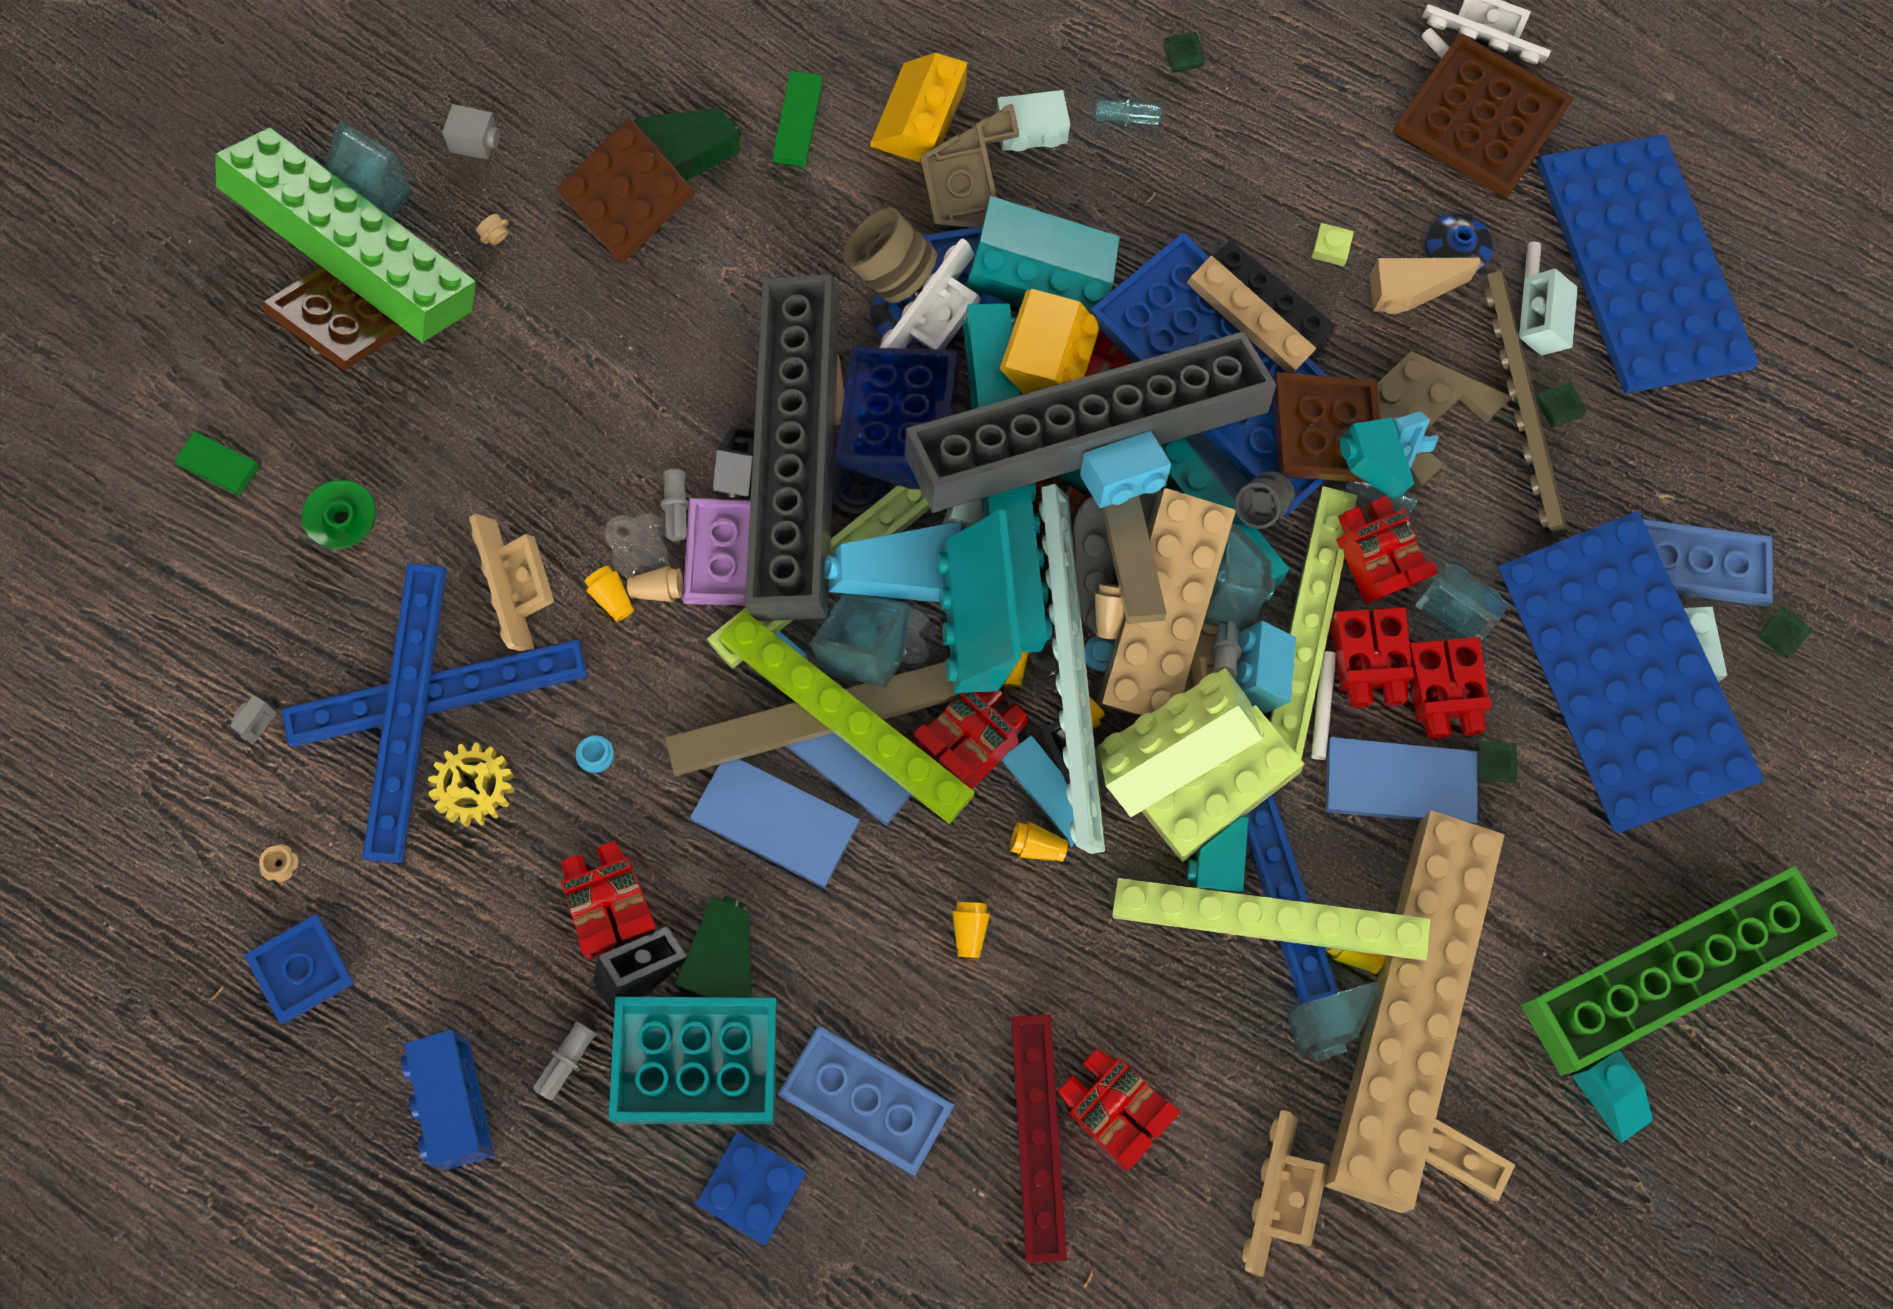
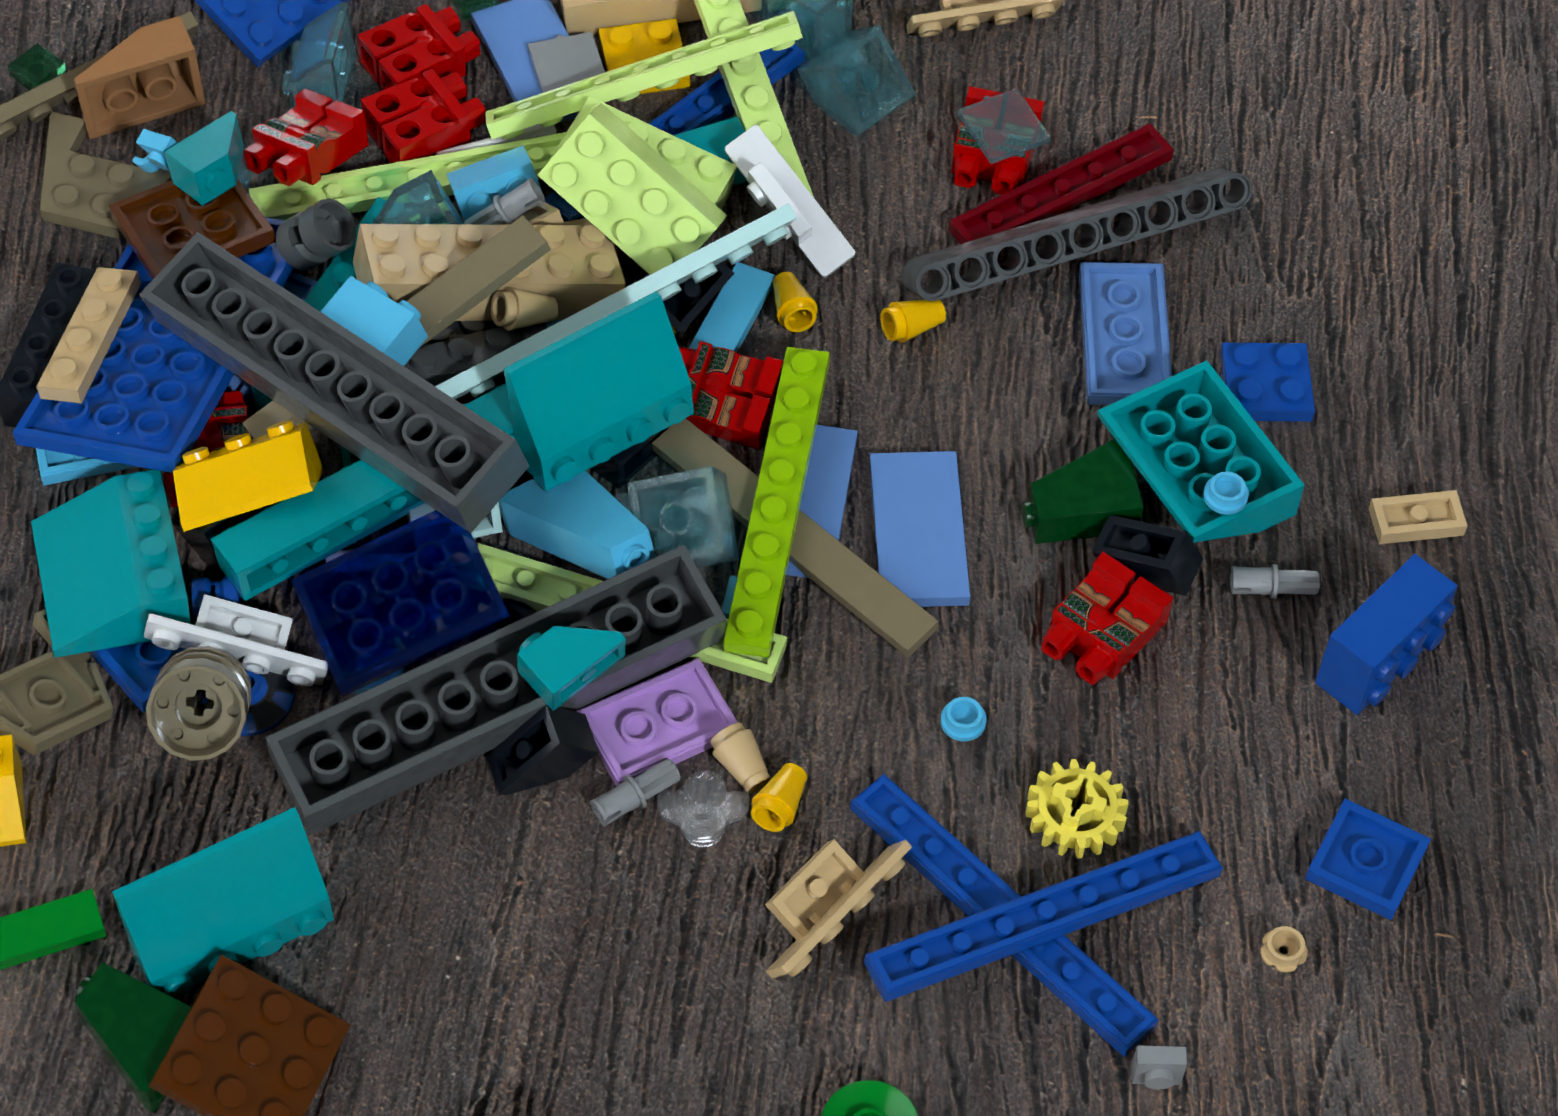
camera: 115 degrees left, 15 degrees down
(547, 1220) = (1417, 517): none -> tan plate
(631, 1042) = (1226, 493): none -> medium azure plate
(724, 211) = (225, 900): none -> teal slope
(766, 471) = (567, 660): none -> teal slope
(976, 1120) = (1060, 229): none -> dark grey beam
(1116, 1112) = (1004, 126): none -> clear light blue piece
(1126, 878) = (775, 185): none -> white bracket
(1246, 1028) = (857, 79): none -> clear light blue slope
(1311, 832) = (657, 71): none -> yellowish green plate
(1364, 869) = (638, 42): none -> yellow plate
(1377, 796) = (565, 60): none -> light grey piece
(1505, 462) = (141, 80): none -> medium nougat slope

